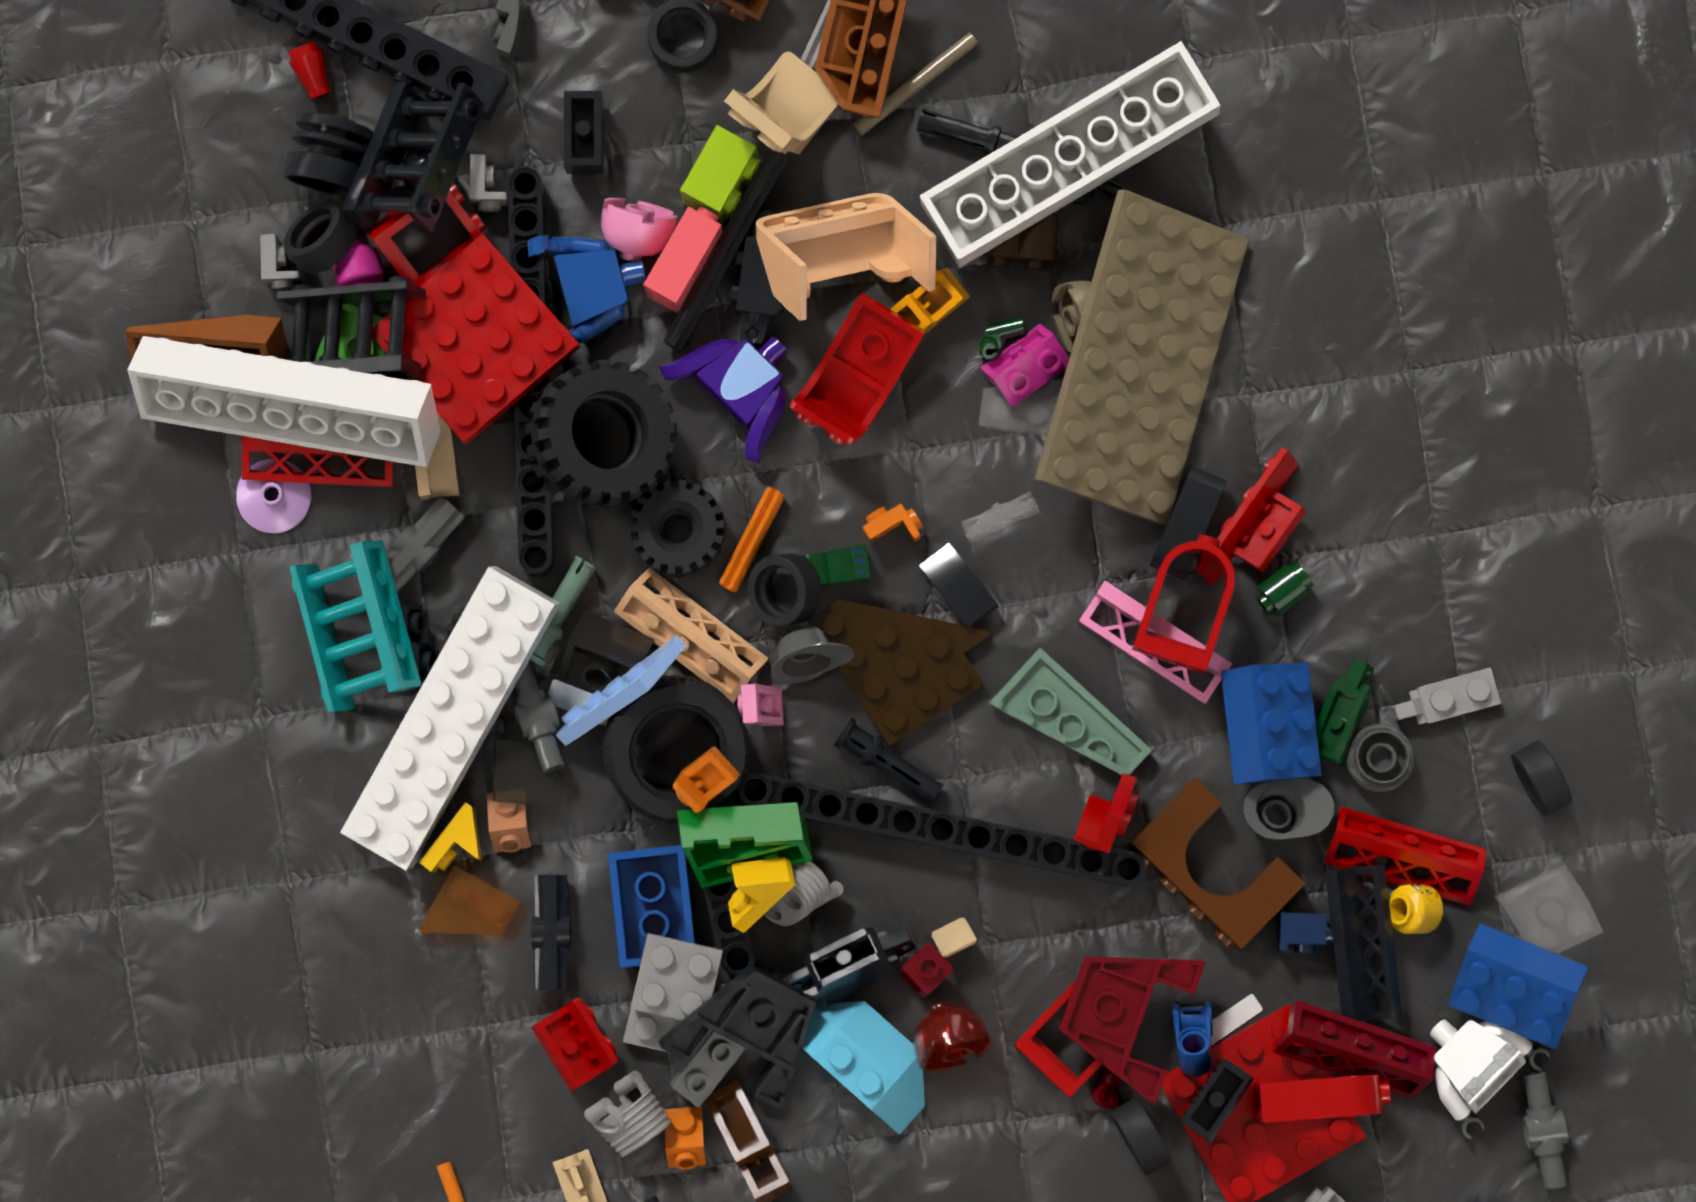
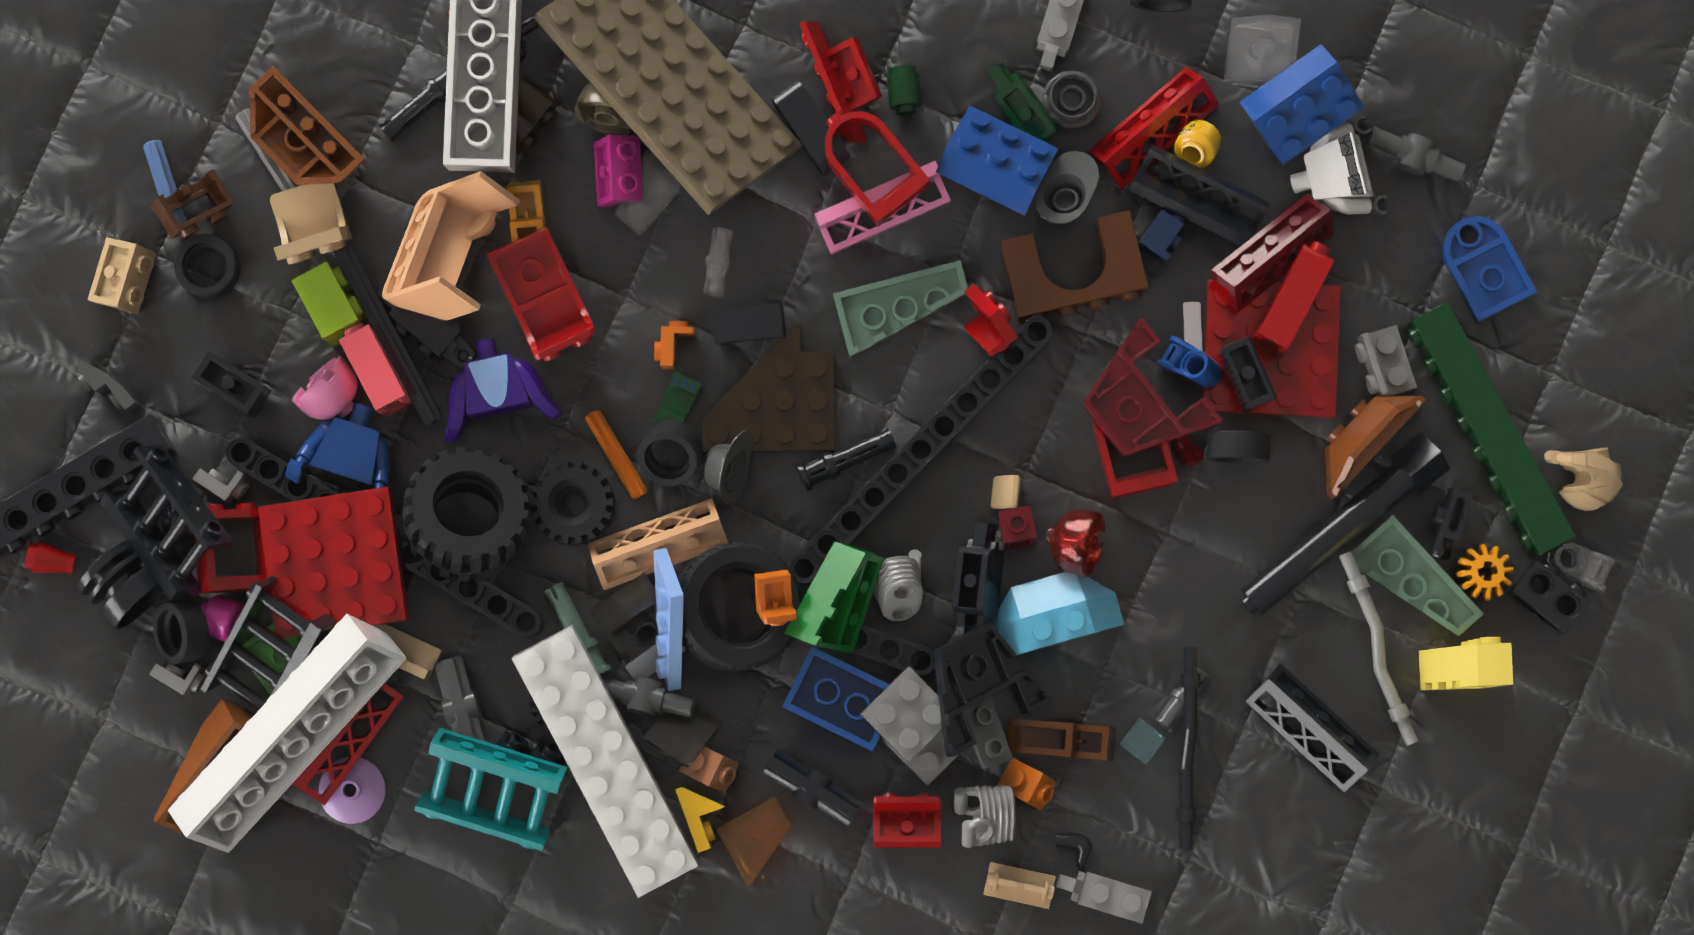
camera: 60 degrees left, 0 degrees up
(759, 888) = (881, 608): yellow slope -> none
(761, 705) = (744, 524): bright pink plate -> none
(918, 81) = (356, 116): dark tan bar -> none
(996, 336) = (582, 179): dark green arm -> none

